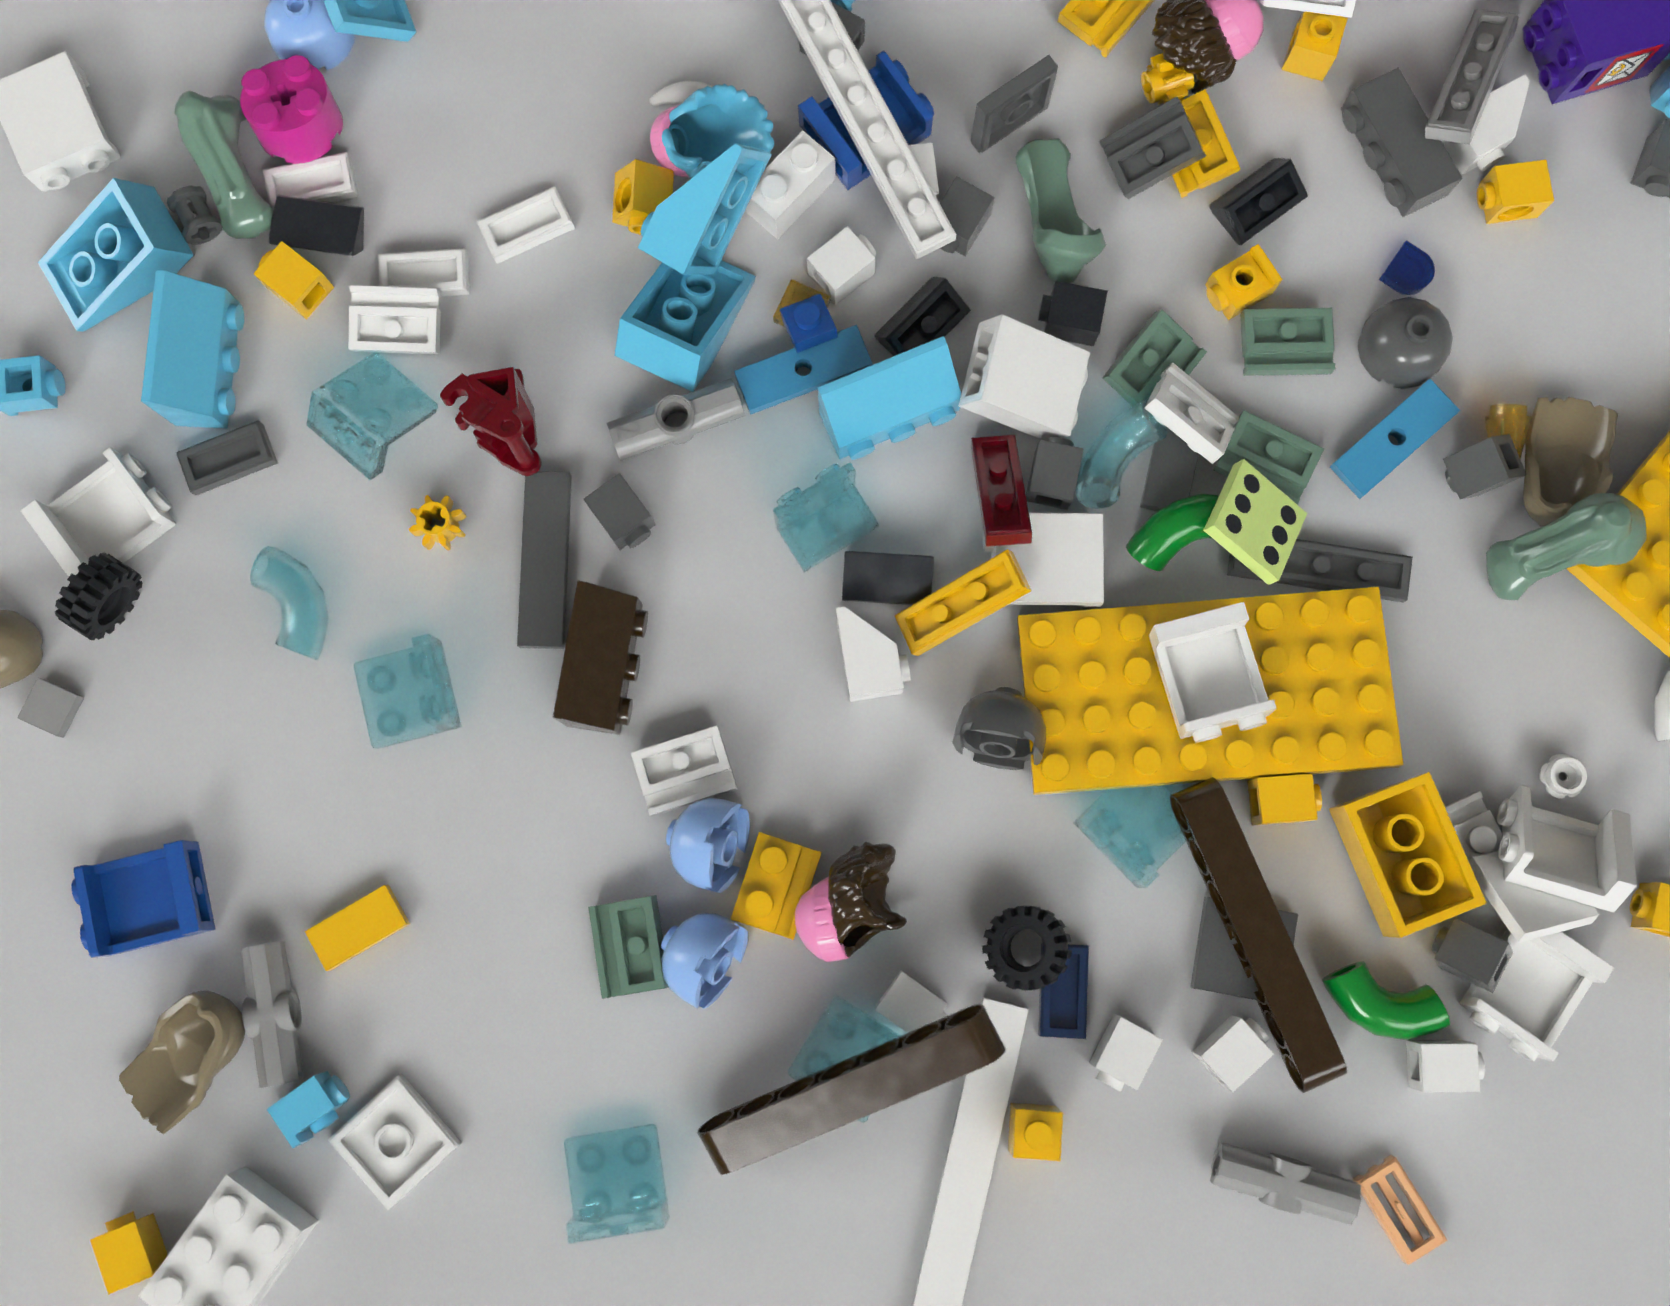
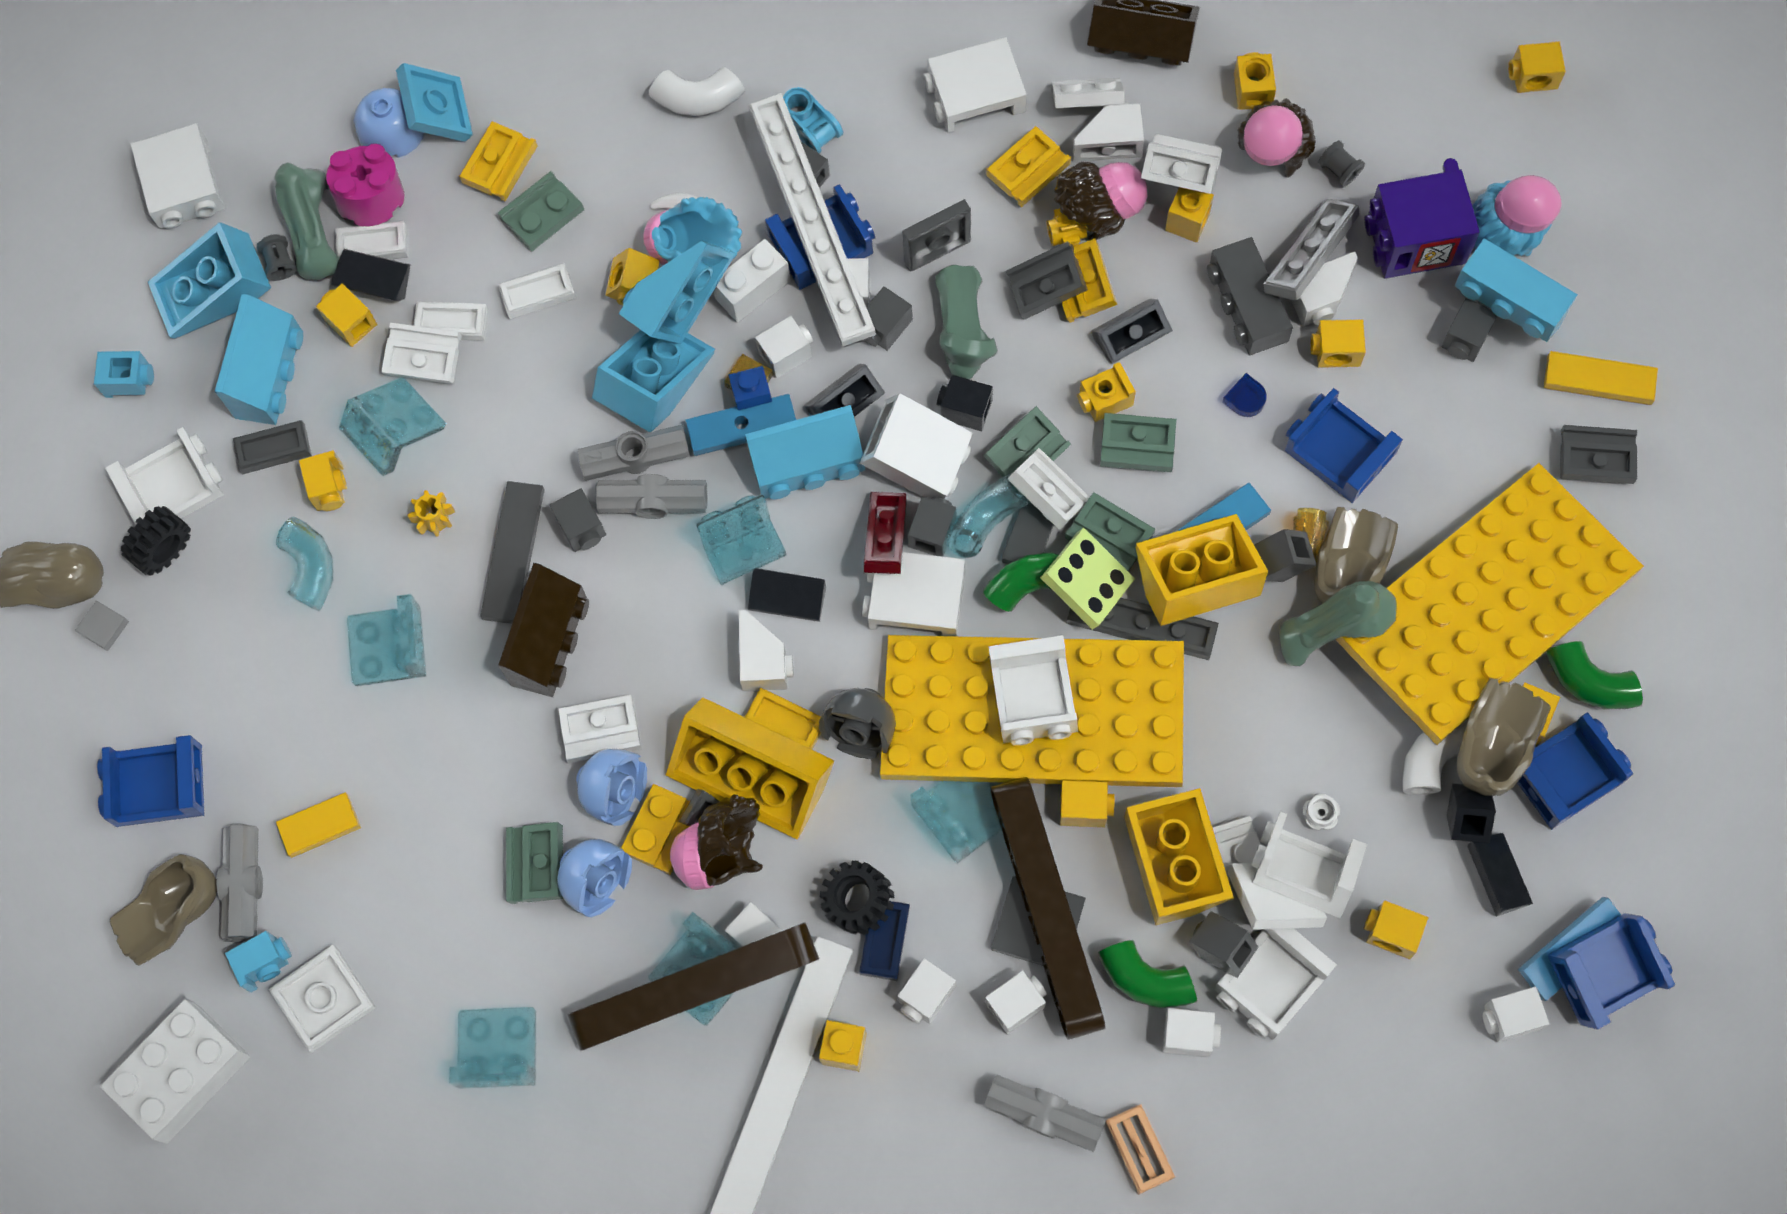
camera: 10 degrees right, 10 degrees down
(129, 1251) = (95, 1056): yellow brick -> none
(297, 496) = (324, 480): none -> yellow brick
(453, 62) = (498, 161): none -> yellow plate
(500, 415) = (495, 432): dark red piece -> none
(515, 121) = (541, 211): none -> sand green plate
(705, 472) = (651, 496): none -> light grey piece
(820, 858) = (696, 807): none -> dark grey tile
(873, 796) = (740, 757): none -> yellow slope
(906, 734) = (785, 718): none -> yellow tile
(962, 602) = (842, 618): yellow tile -> none
(1389, 495) = (1200, 569): none -> yellow slope
(1405, 342) = (1235, 453): dark grey cylinder -> none
(1532, 322) = (1340, 446): none -> blue panel

